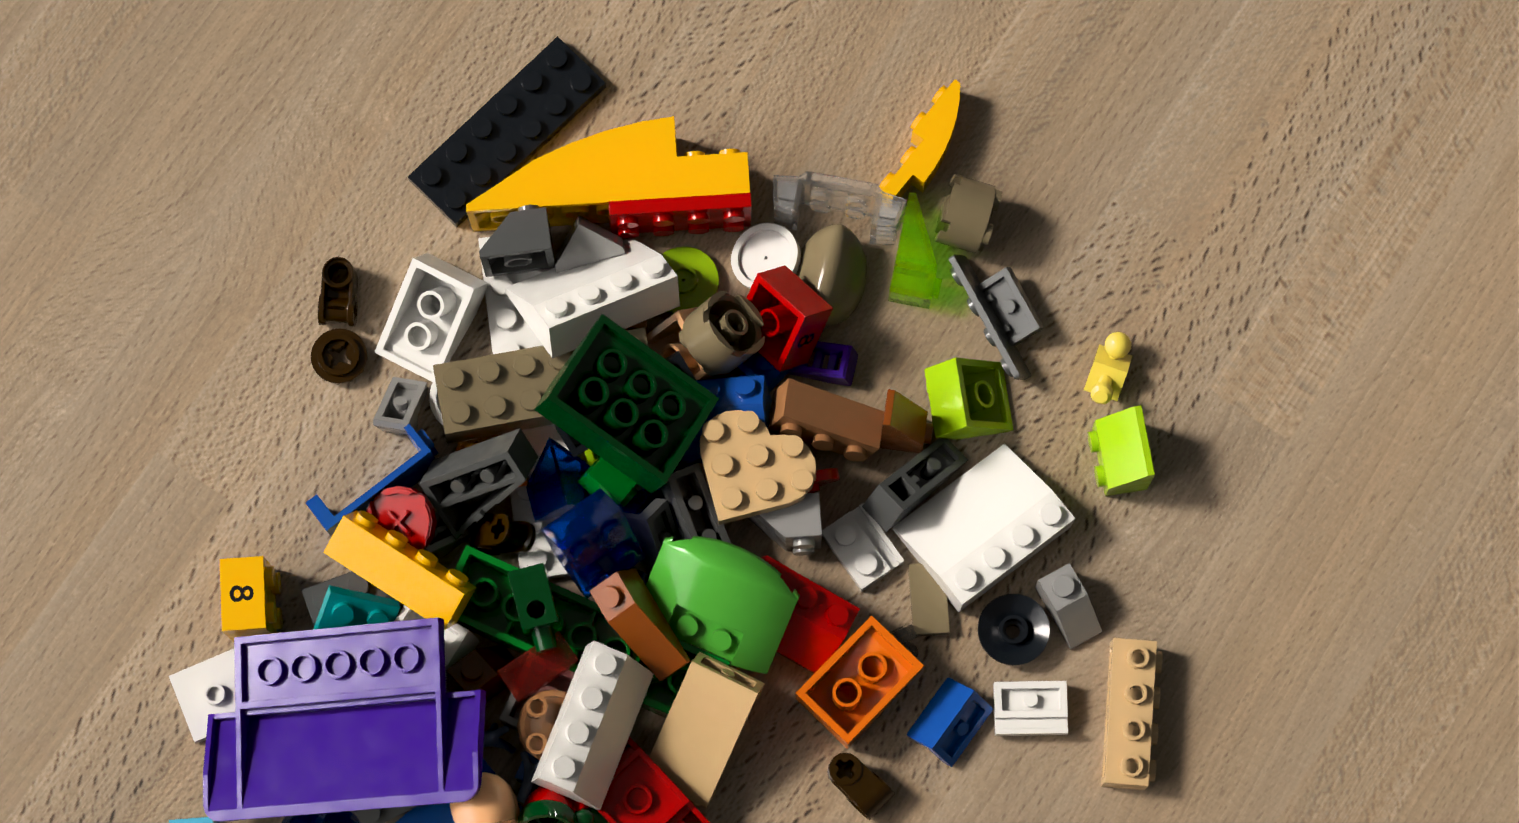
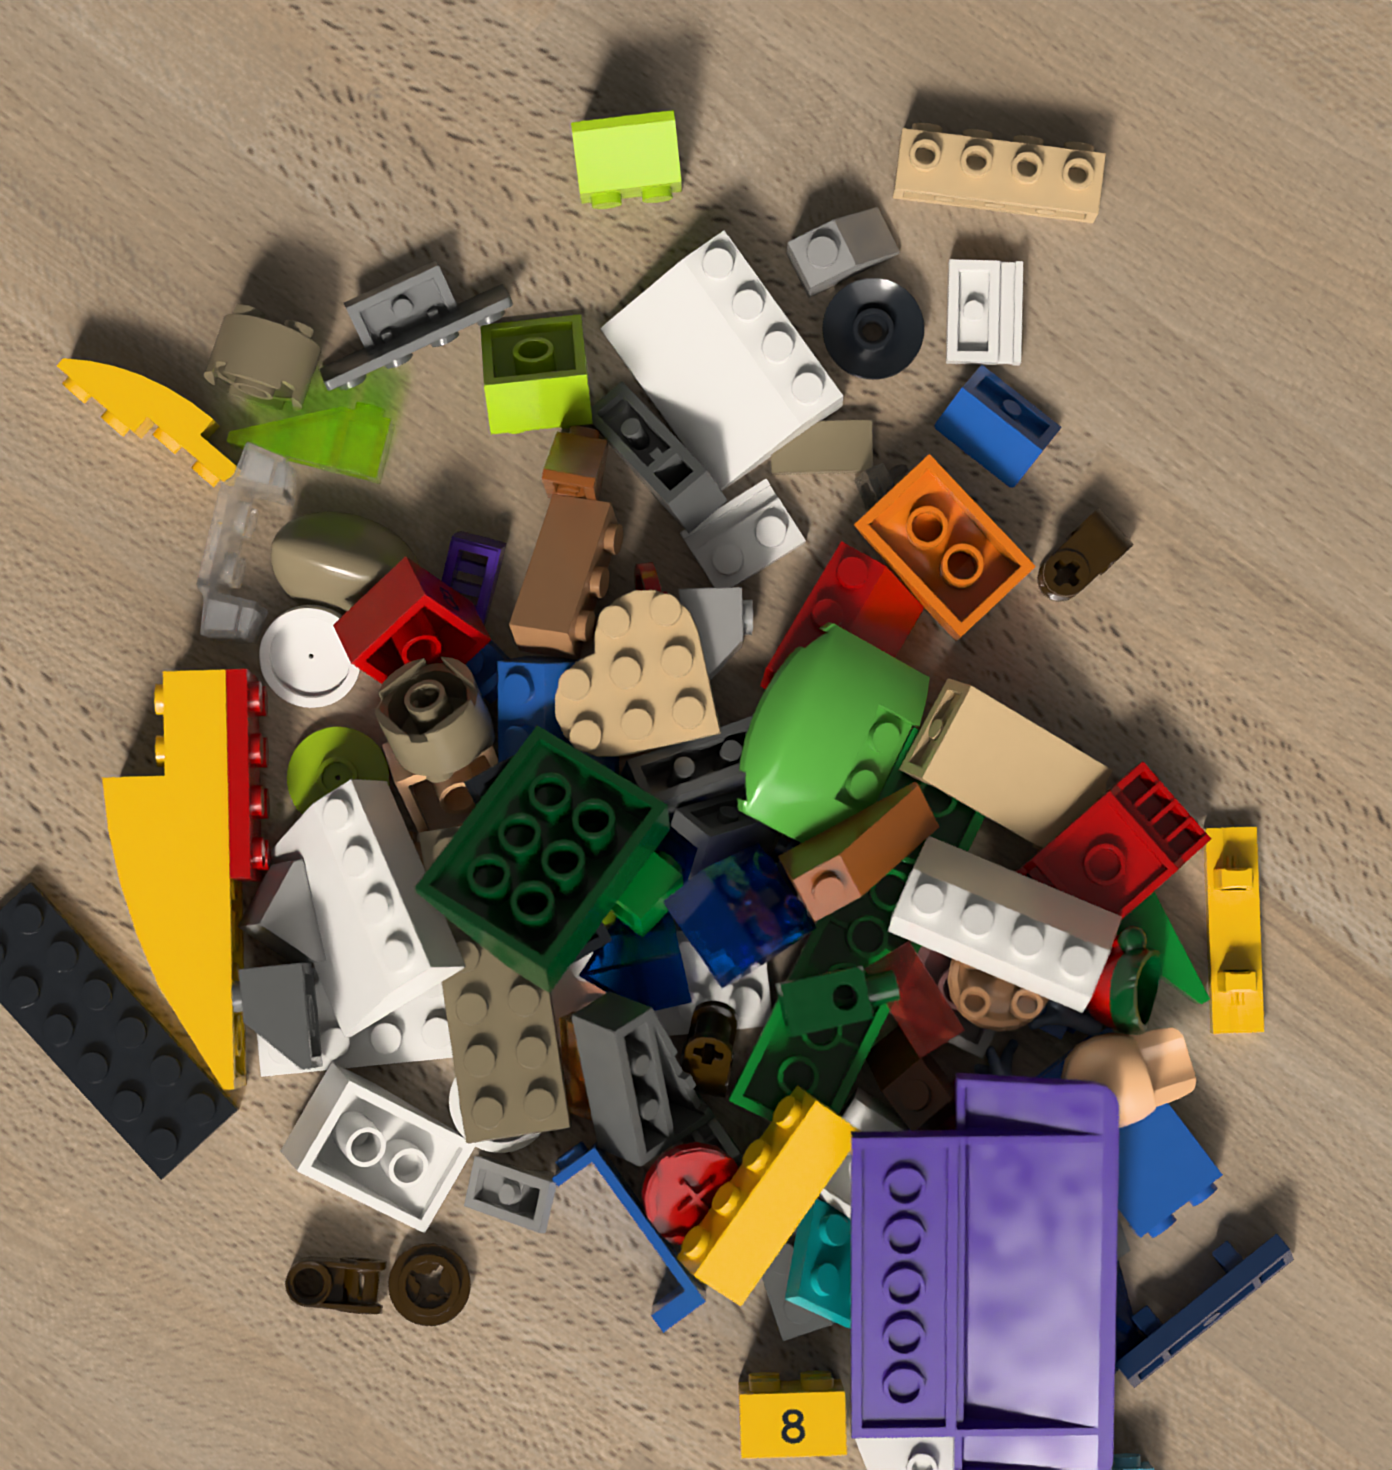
camera: 90 degrees left, 10 degrees up
(1109, 368) = (501, 171): light yellow piece -> none

